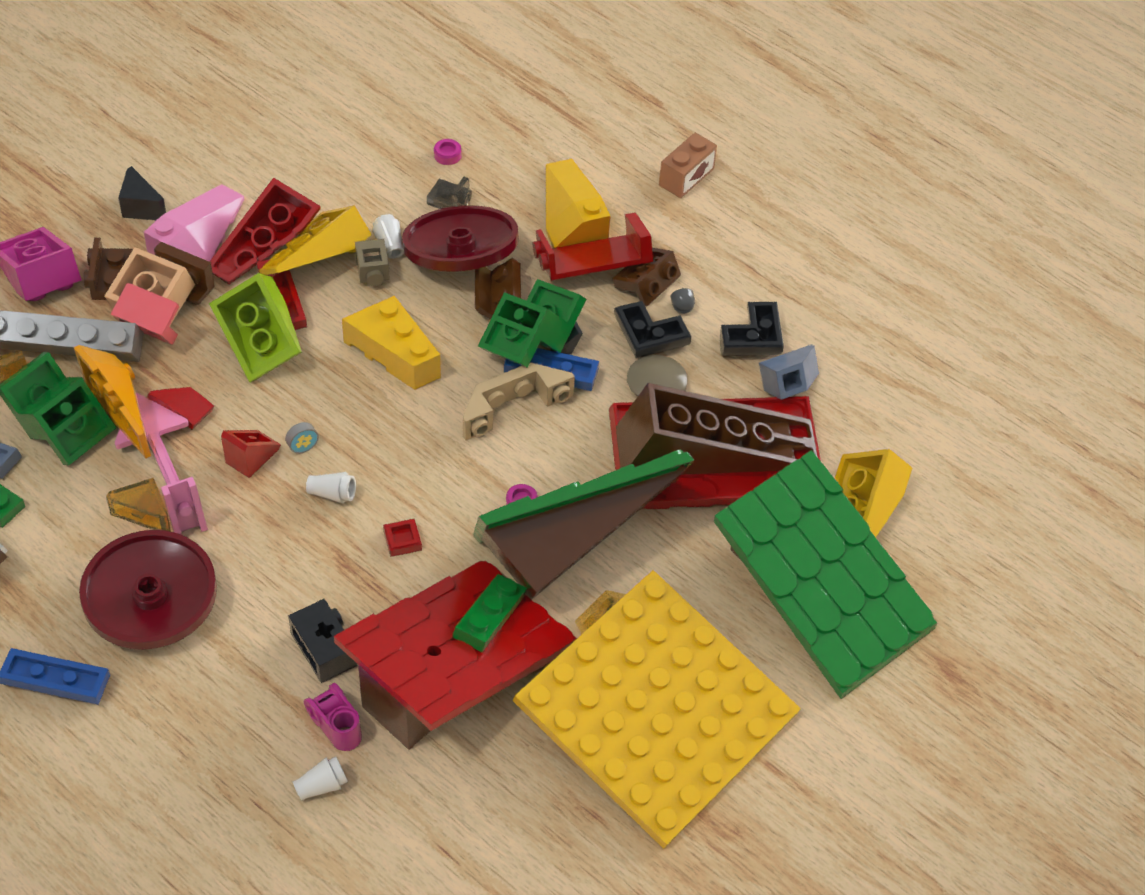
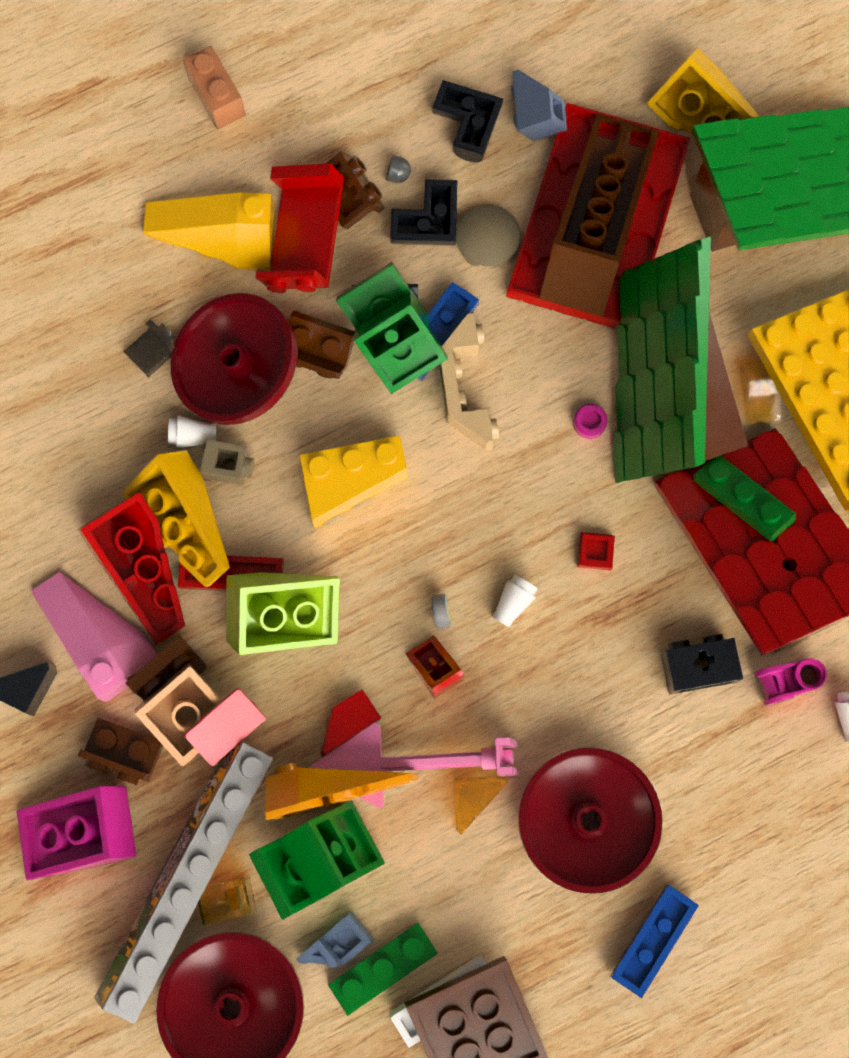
camera: 65 degrees left, 25 degrees up
(447, 152) = (81, 328): dark pink tile -> none

